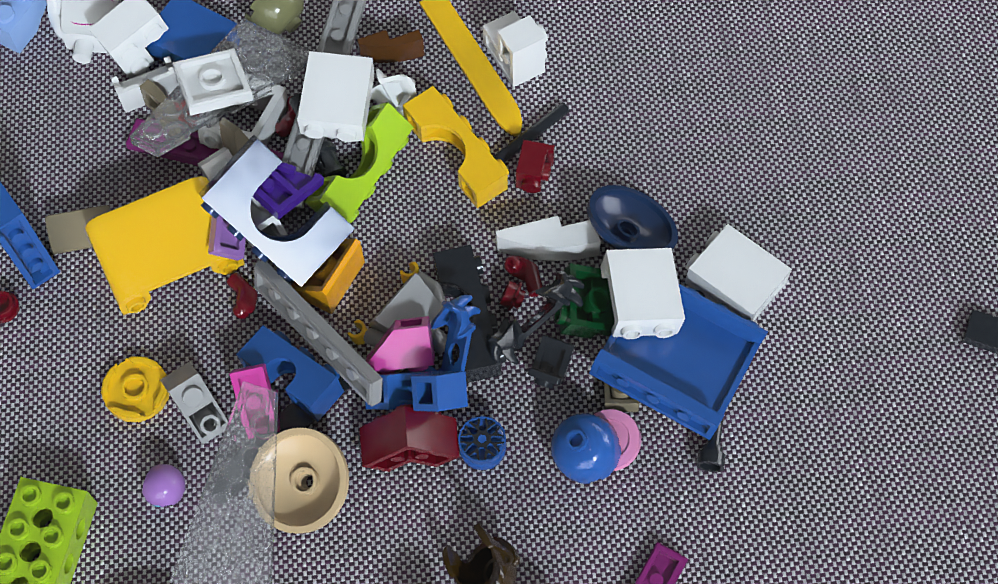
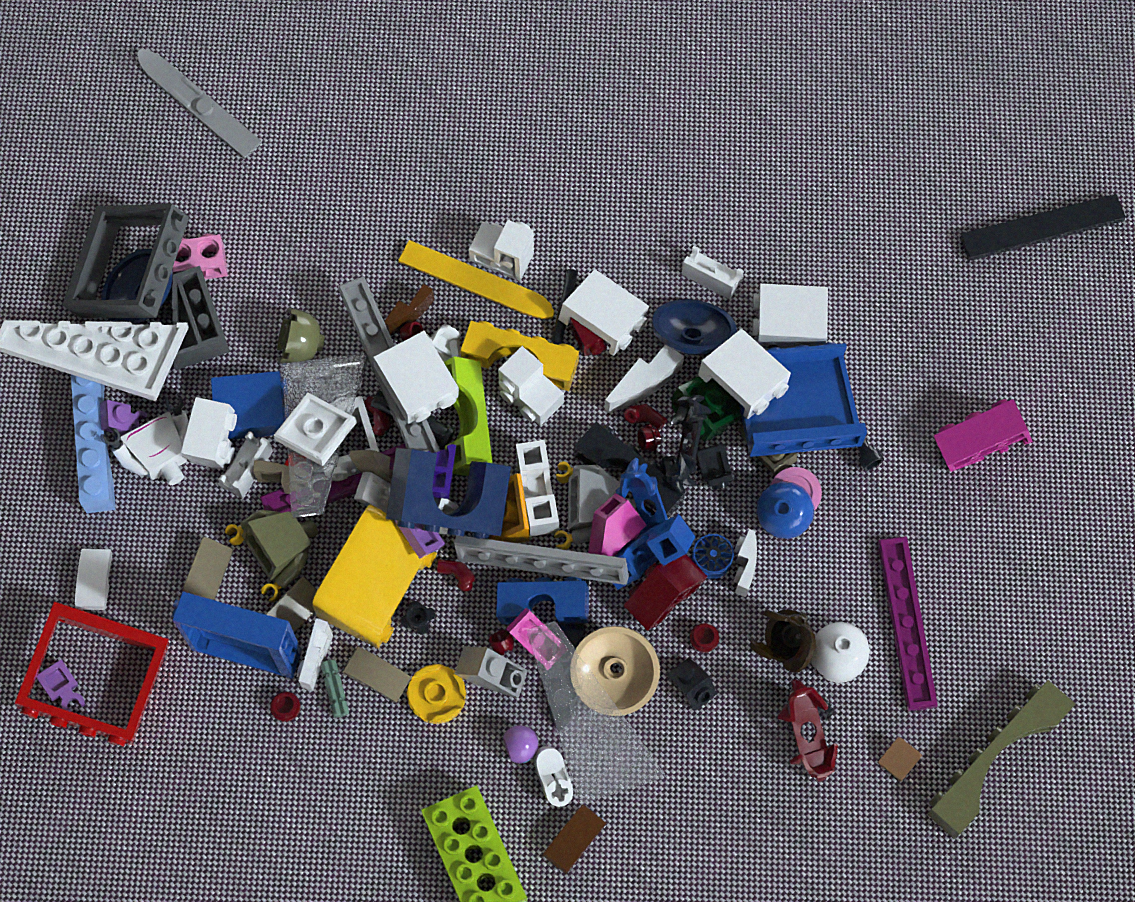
camera: 40 degrees left, 5 degrees up
(42, 148) = (208, 569): none -> dark tan slope
(55, 321) = (334, 688): none -> sand green axle
(60, 277) = (316, 652): none -> white wing
(99, 334) = (377, 674): none -> dark tan slope
(110, 166) = (277, 544): none -> olive torso
(159, 552) = (558, 789): none -> white piece
(175, 302) = (415, 609): none -> black plate
(224, 385) = (501, 642): none -> dark red hinge
(365, 548) = (692, 683): none -> black bracket
(382, 251) = (537, 488): none -> white arch
(386, 65) = (409, 330): none -> dark red hinge
(413, 513) = (704, 638): none -> dark red plate
(435, 167) = (525, 385): none -> white brick
(516, 463) = (746, 557): none -> white slope
(562, 156) = (606, 310): none -> white panel
(692, 189) = (711, 273): none -> white hinge
(843, 512) = (982, 434): none -> dark pink wedge

